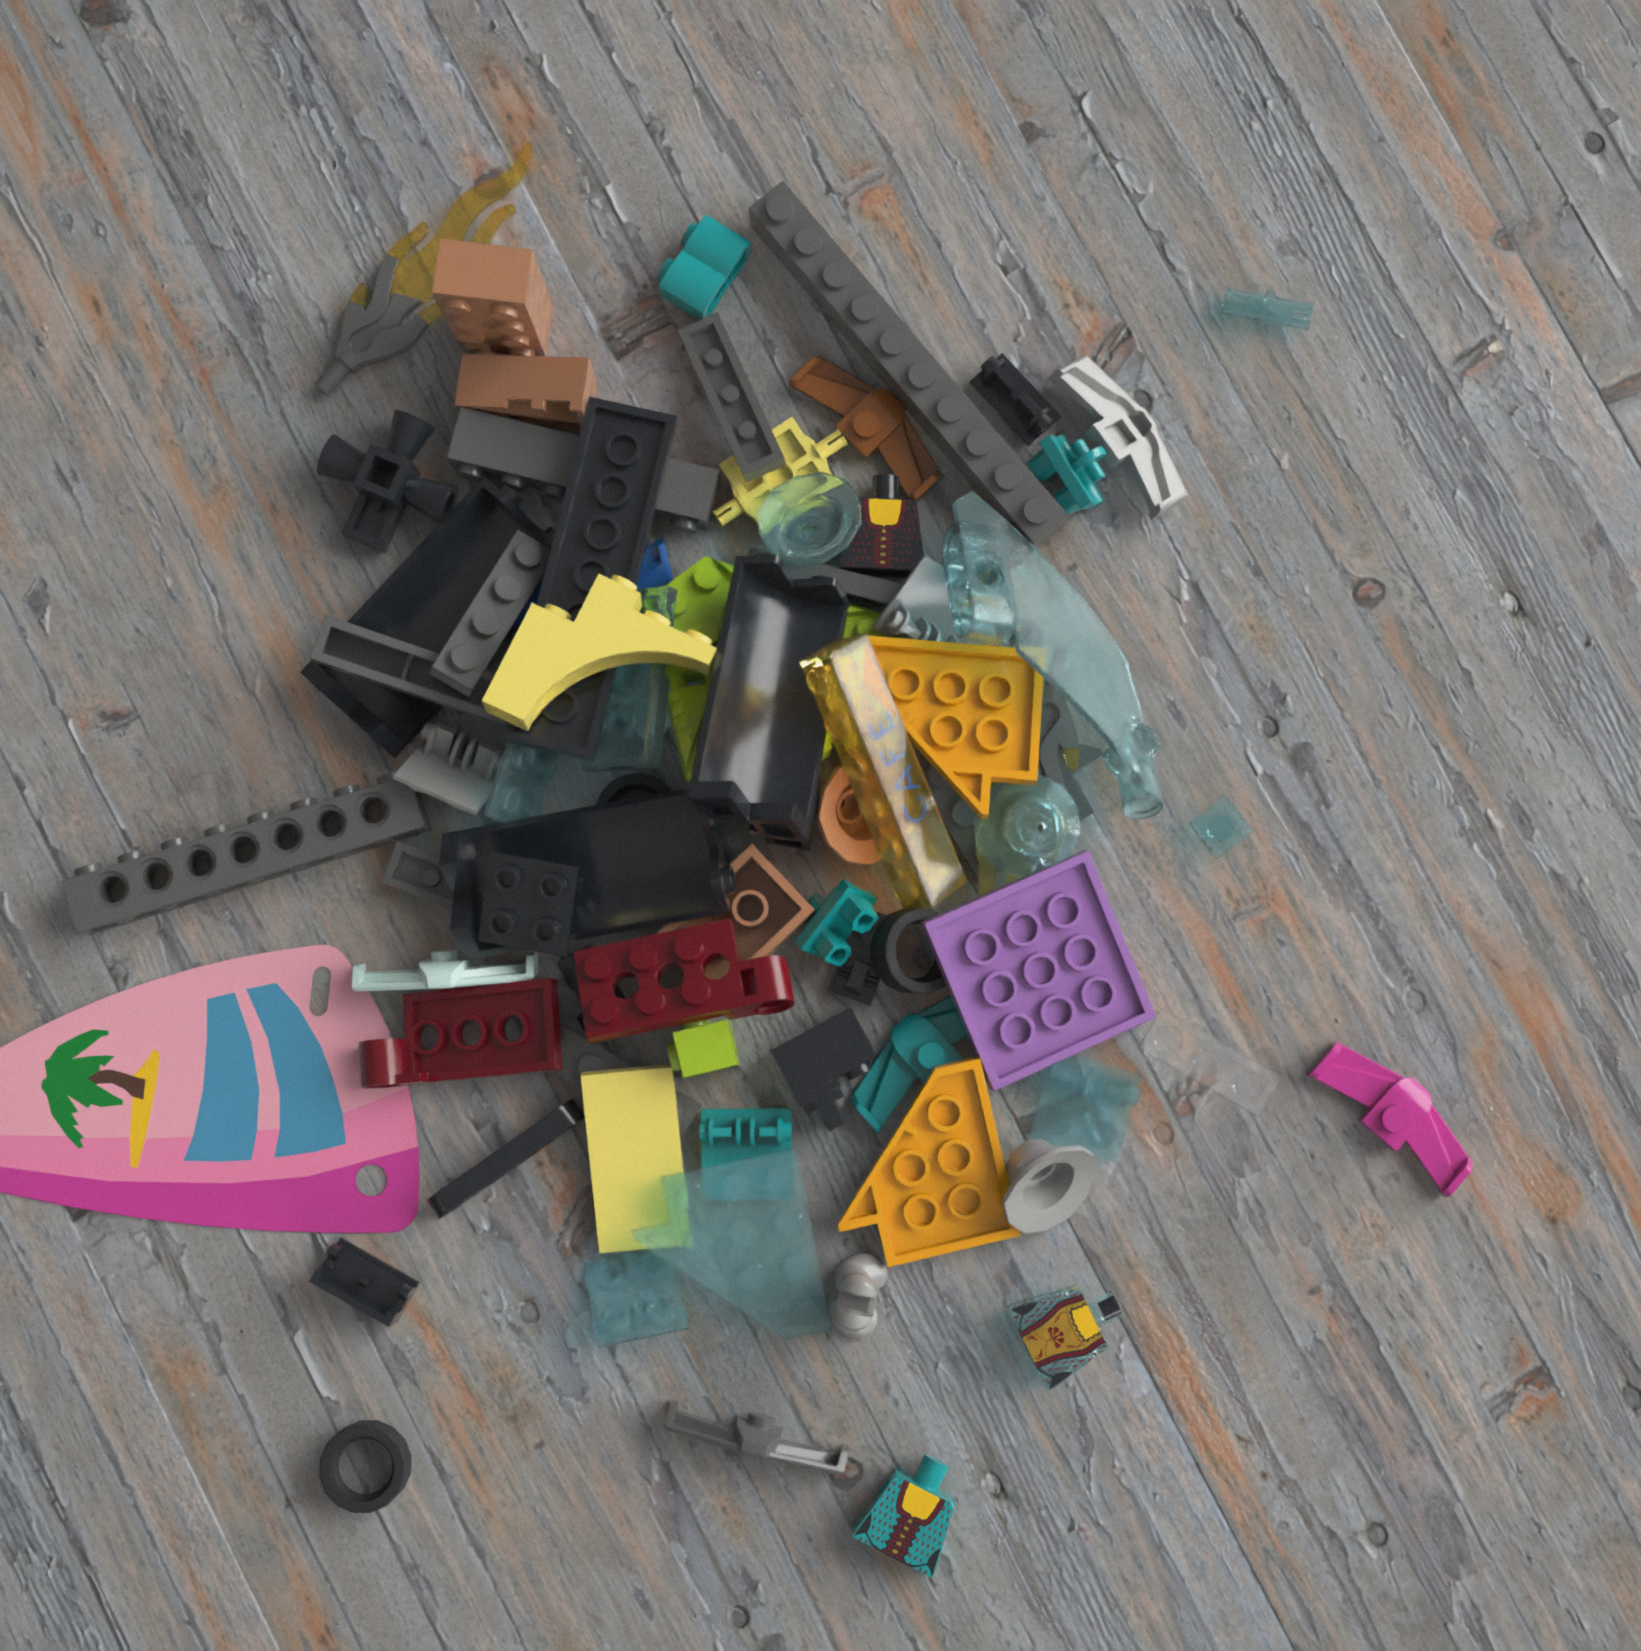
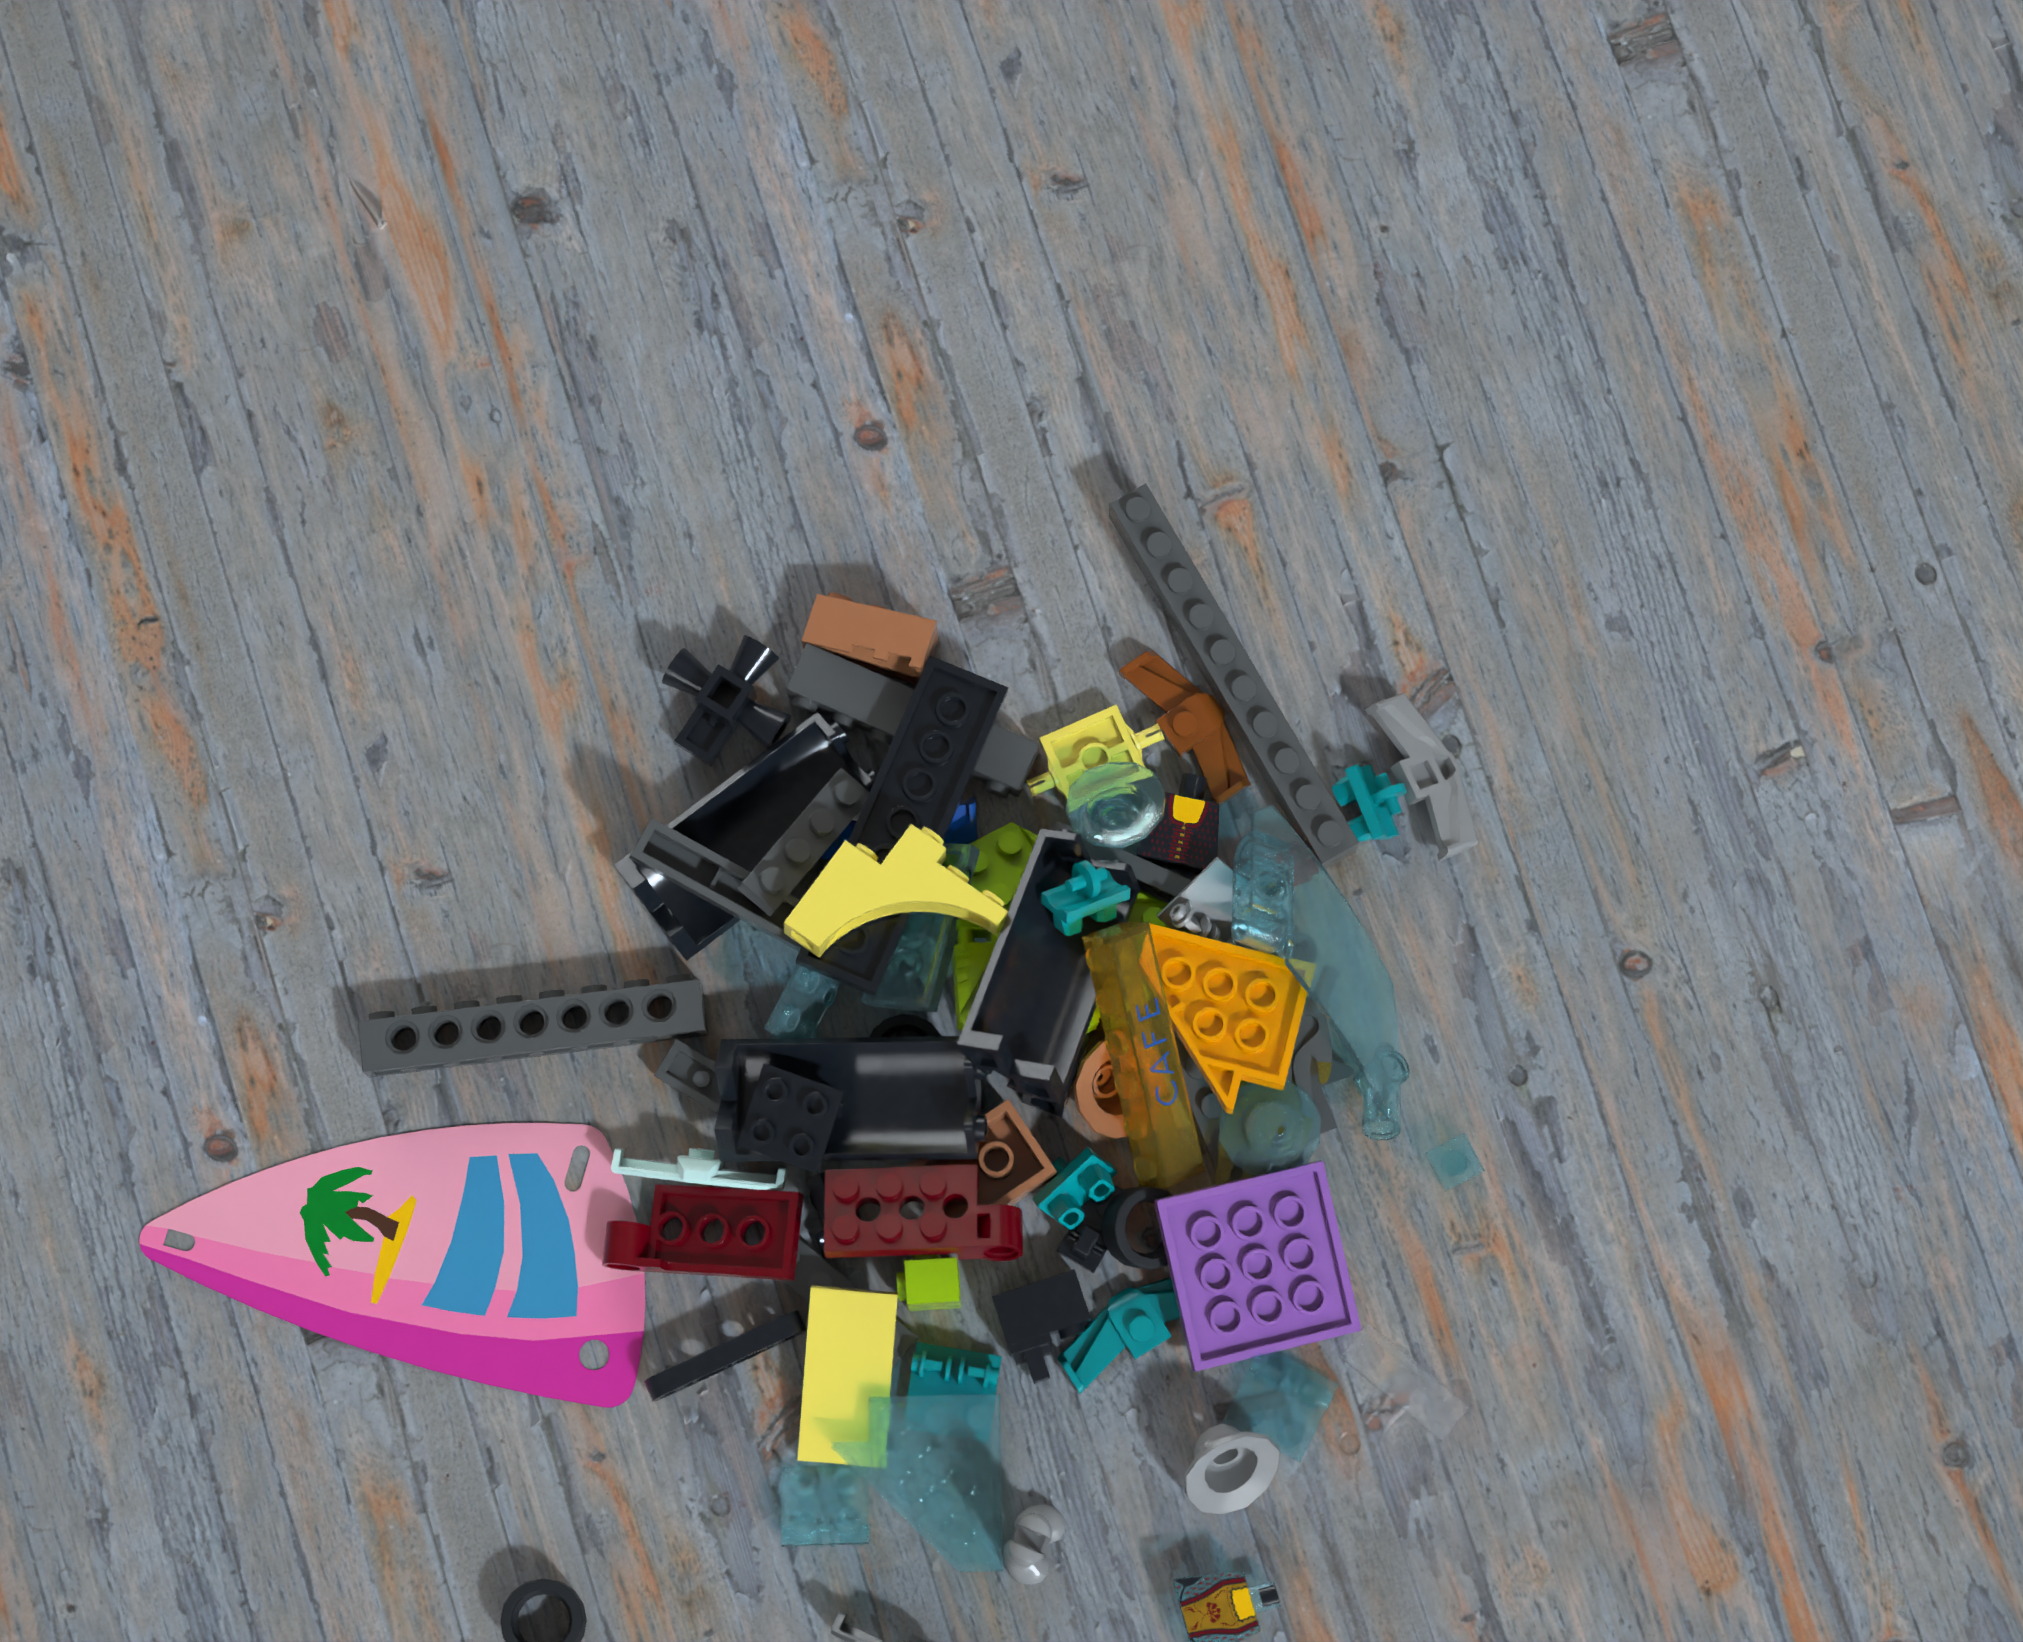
camera: 10 degrees right, 5 degrees down
(365, 1282) = (574, 1447): black hinge -> none
(405, 284) = (775, 515): piece -> none
(449, 770) = (738, 982): light grey hinge -> none
(493, 298) = (857, 552): nougat brick -> none
(703, 268) = (1057, 550): teal brick -> none
(732, 397) = (1062, 677): dark grey plate -> none
(795, 616) = (1085, 894): none -> teal hips
(938, 1173) = (1129, 1440): light orange wing -> none
(1014, 398) = (1330, 723): black hinge -> none
(1267, 308) = (1584, 679): clear light blue pin -> none
(1397, 1113) = (1575, 1462): dark pink plate -> none

